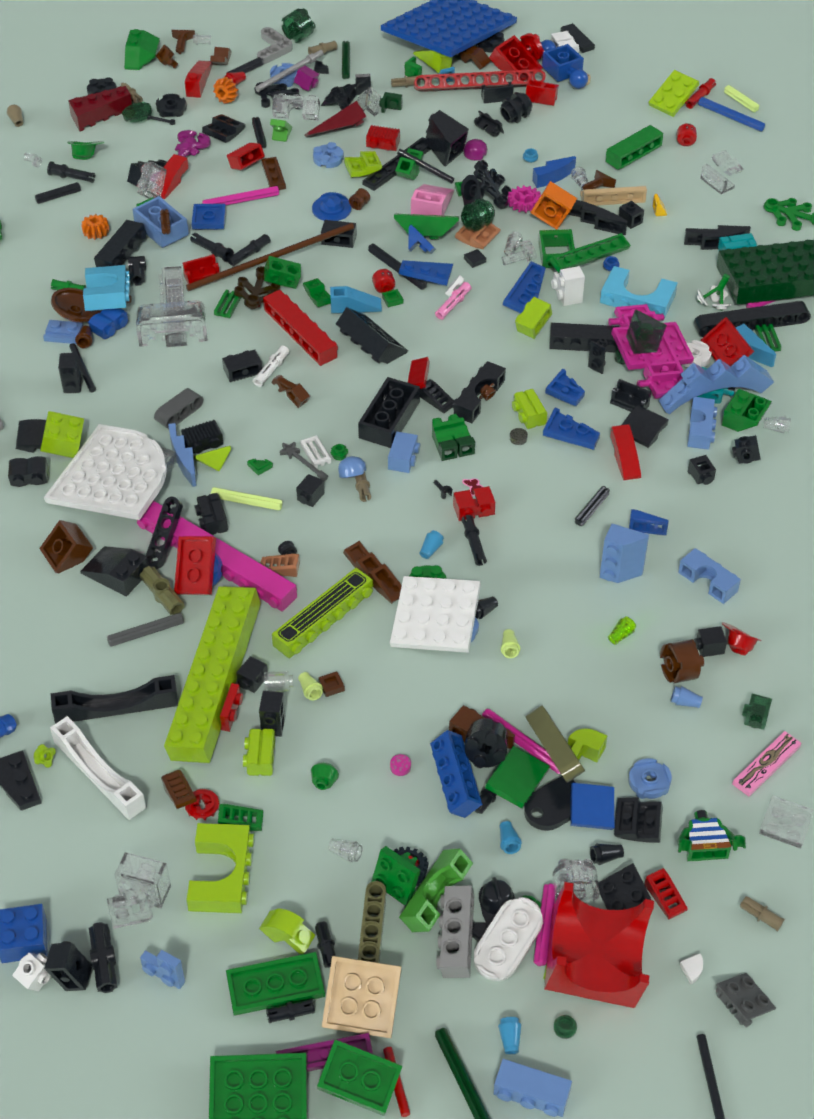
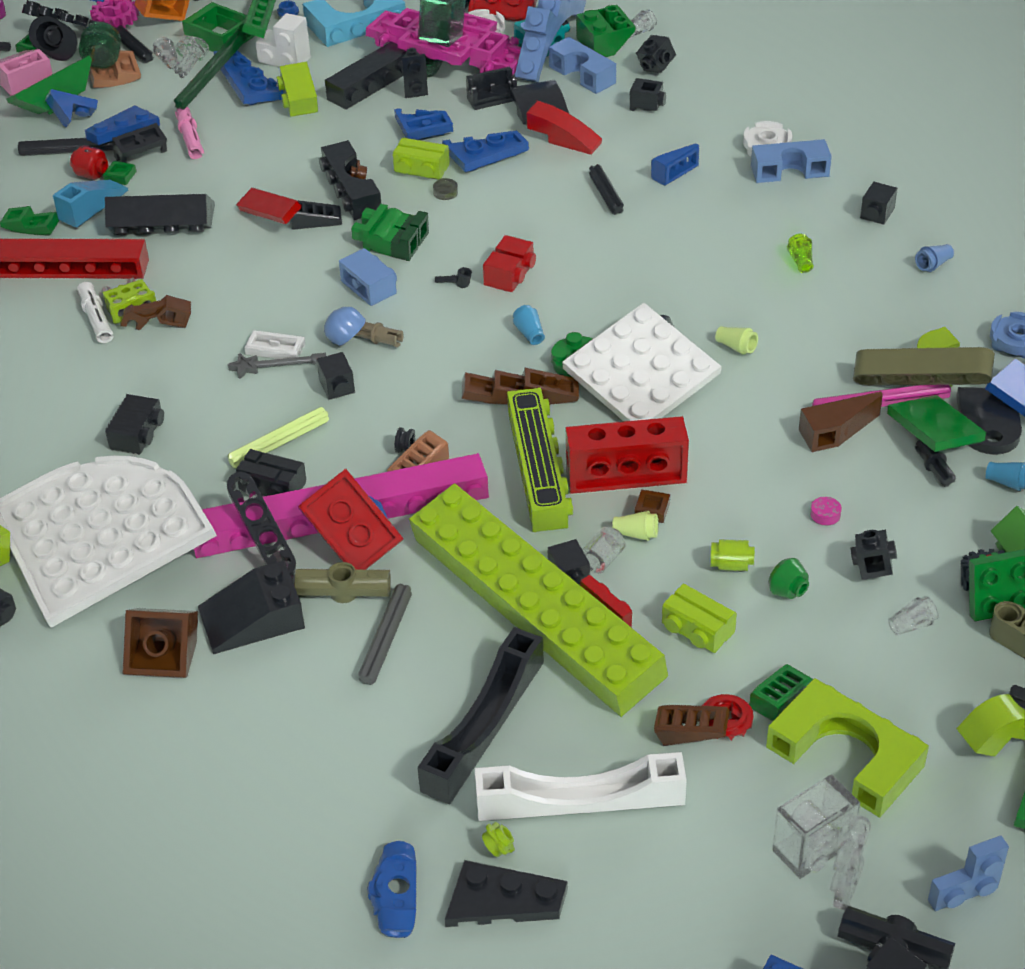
camera: 50 degrees left, 5 degrees down
(178, 407) = (57, 421): dark grey beam -> none
(183, 455) = (167, 455): medium blue slope -> none
(214, 458) = (176, 432): lime slope -> none
(242, 365) = (62, 333): black brick -> none
(259, 466) = (237, 402): green tile -> none
(272, 711) = (658, 569): black brick -> none
(292, 371) = (124, 295): none -> lime piece
(322, 740) = (732, 555): none -> lime brick
(339, 452) = (301, 326): green plate -> none
(352, 647) = (626, 454): none -> red brick
(374, 803) = (873, 554): none -> black brick
(389, 412) = (299, 254): black brick -> none
(418, 287) = (138, 142): none -> black hinge
(455, 774) = (890, 466): blue brick -> none
(458, 281) = (167, 119): white tile -> none
(472, 483) = (471, 254): dark red sticker -> none
(472, 534) = (548, 287): black pin -> none
(474, 258) = (146, 89): black tile -> none
(486, 743) = (876, 416): black brick -> none
(506, 271) = (211, 68): none -> dark green axle
(508, 225) = (134, 44): none -> black axle
(623, 554) = (713, 188): medium blue slope -> none
(681, 661) = (892, 229): reddish brown brick -> none
(731, 546) = (765, 133): none -> white plate
(739, 640) = (903, 179): red piece -> none
(757, 711) = (999, 219): clear green brick -> none

